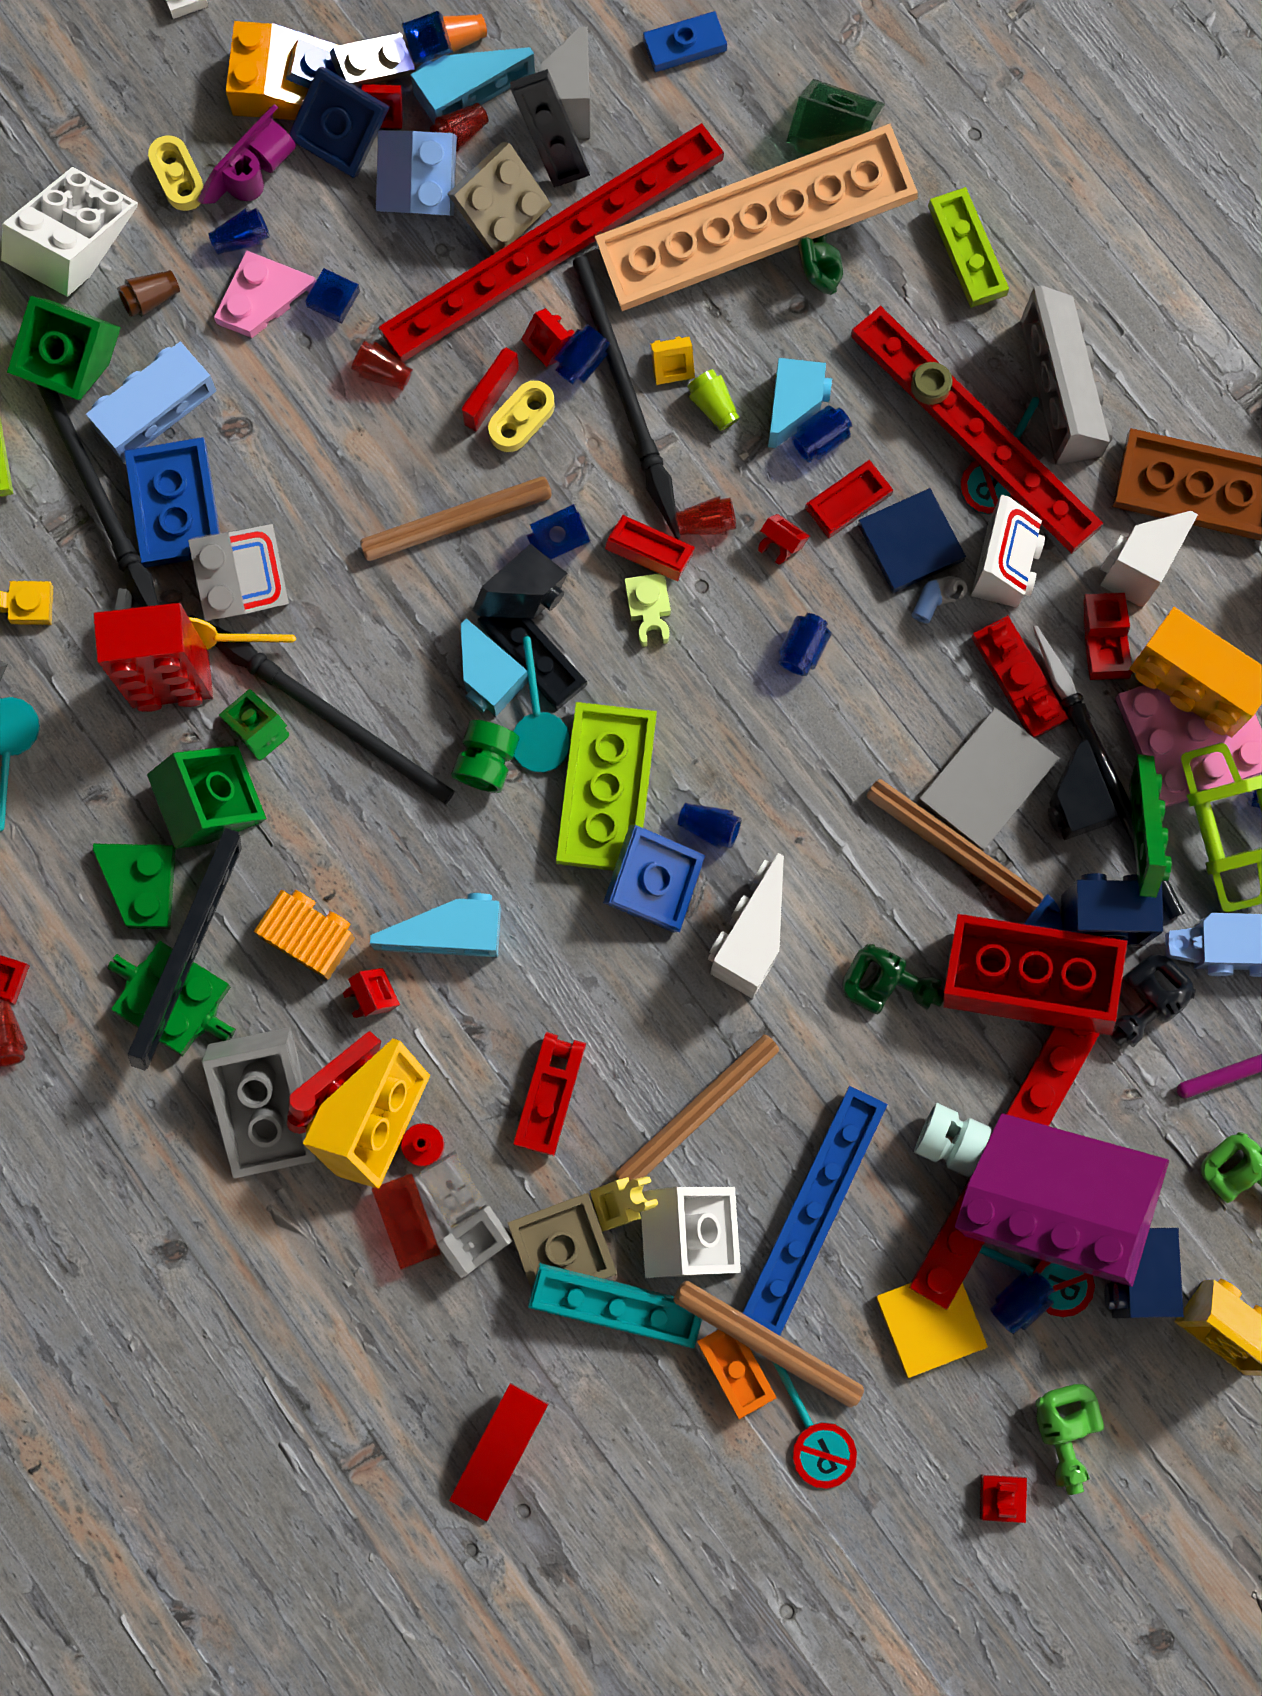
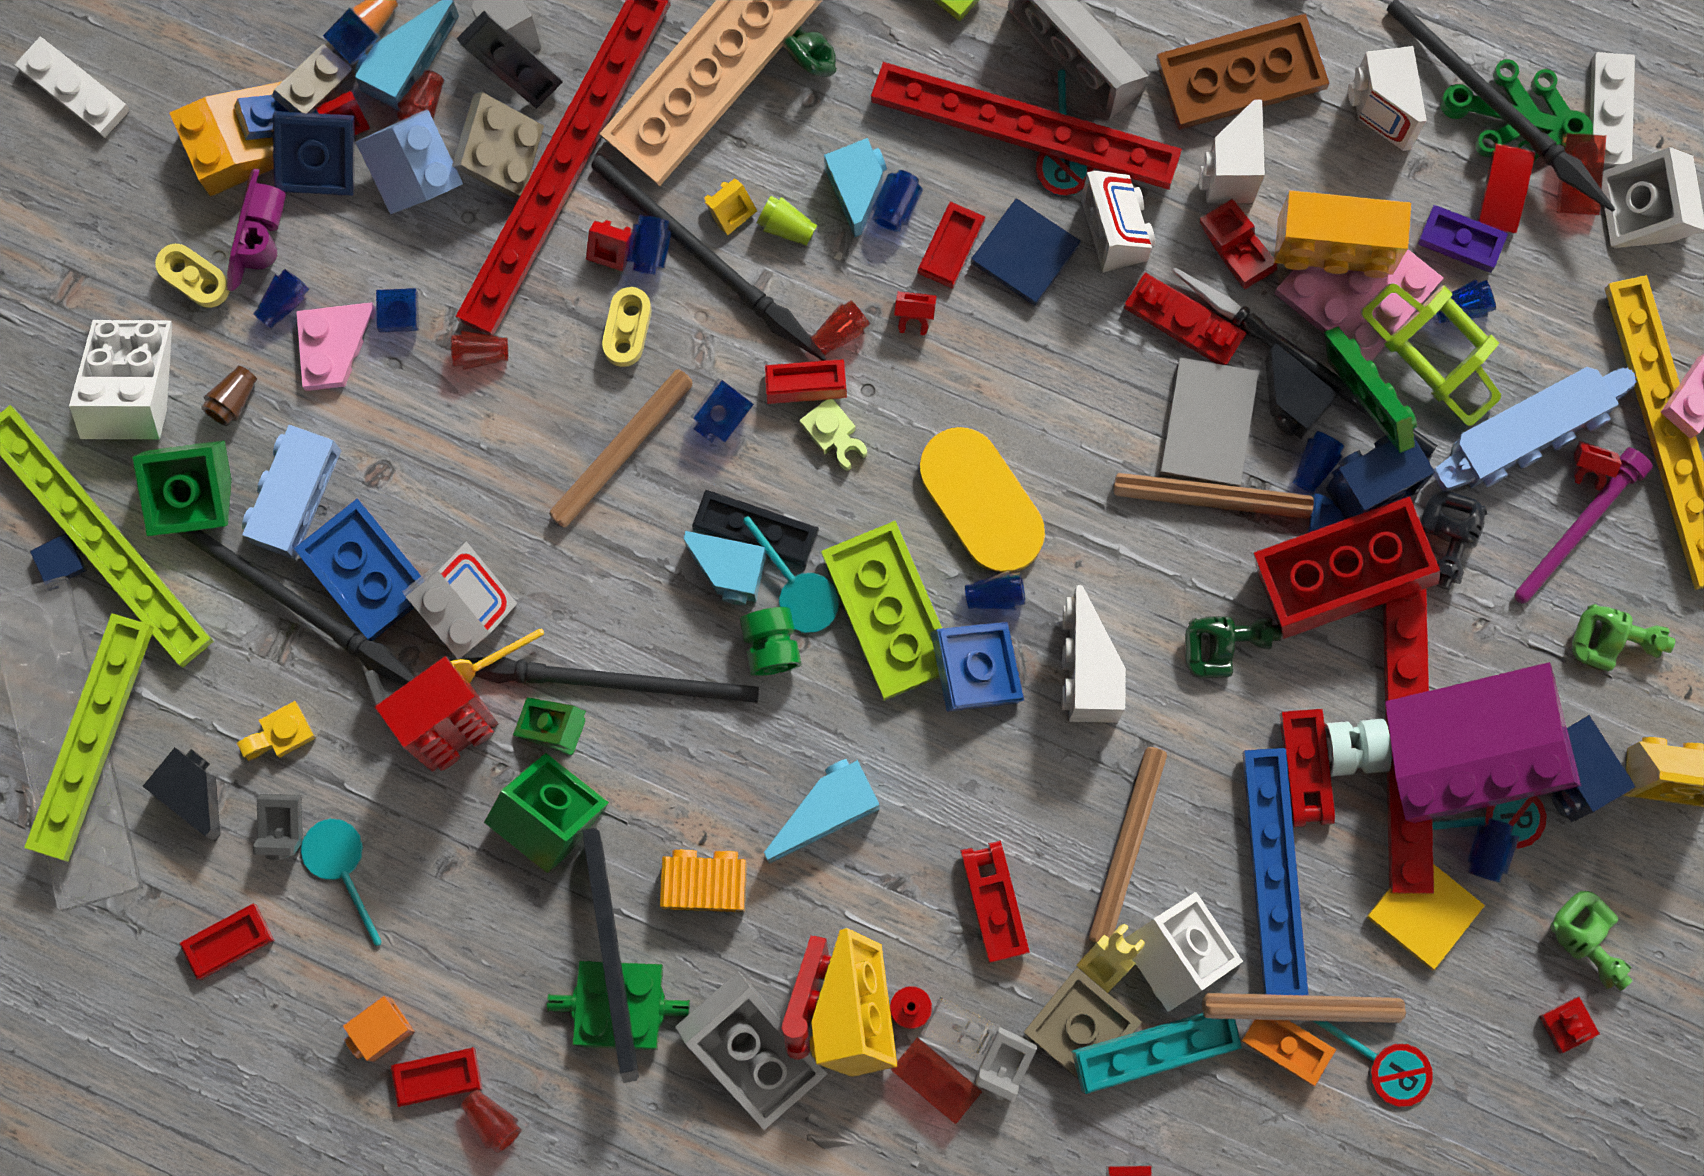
camera: 25 degrees left, 0 degrees up
(140, 882) = (530, 920): green wing -> none
(372, 992) = (791, 900): red tile -> none
(490, 388) = (585, 317): red tile -> none
(522, 587) = (718, 476): black slope -> none
(745, 736) = (982, 500): none -> yellow tile
(804, 644) = (987, 392): clear blue brick -> none
(898, 1132) = (1307, 765): none -> red plate
(931, 383) = (967, 106): olive tile -> none
(938, 593) = (1074, 285): arm -> none
(1066, 866) = (1317, 461): none -> clear blue cone

